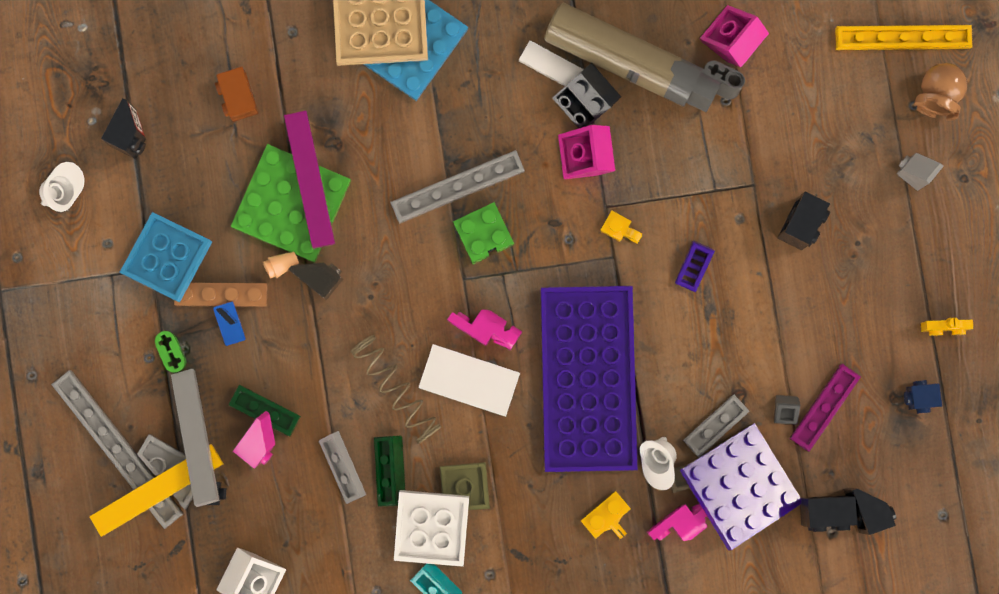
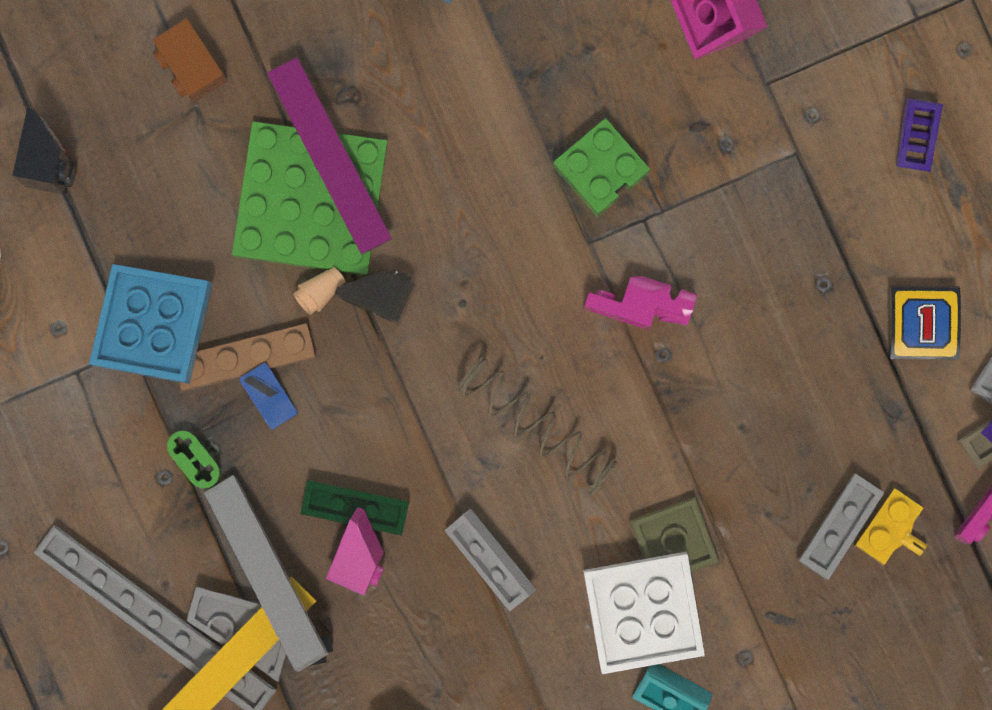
camera: 10 degrees left, 0 degrees up
(389, 469) = (558, 545): dark green slope -> none
(457, 186) = (544, 111): light grey tile -> none
(469, 380) = (638, 385): white tile -> none
(574, 506) = (840, 526): none -> light grey plate
(588, 379) = (811, 337): dark purple plate -> none
(618, 226) = (792, 107): yellow plate -> none
(658, 463) = (946, 431): white piece -> none
(665, 389) = (924, 322): none -> slope

